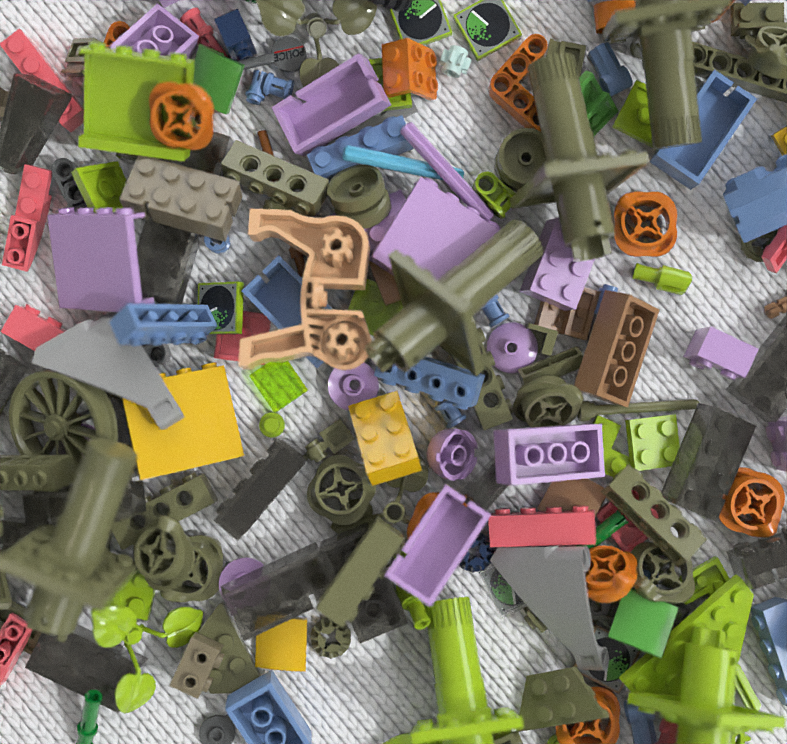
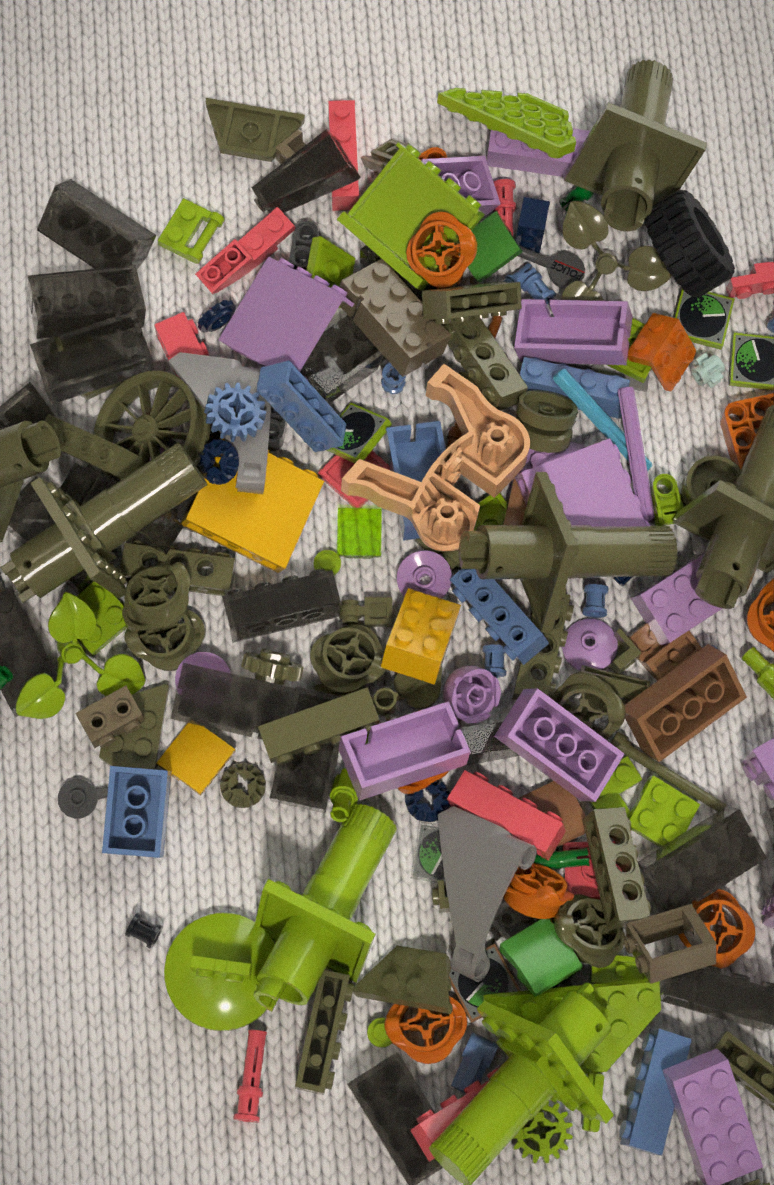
camera: 30 degrees right, 15 degrees down
(44, 289) = (216, 316): none -> dark blue gear
(125, 368) = (222, 415): none -> medium blue gear
(140, 416) = (228, 464): none -> dark blue gear
(234, 141) = (471, 300): none -> olive brick
(289, 540) = (272, 666): none -> olive gear
(729, 521) = (663, 926): none -> dark tan window

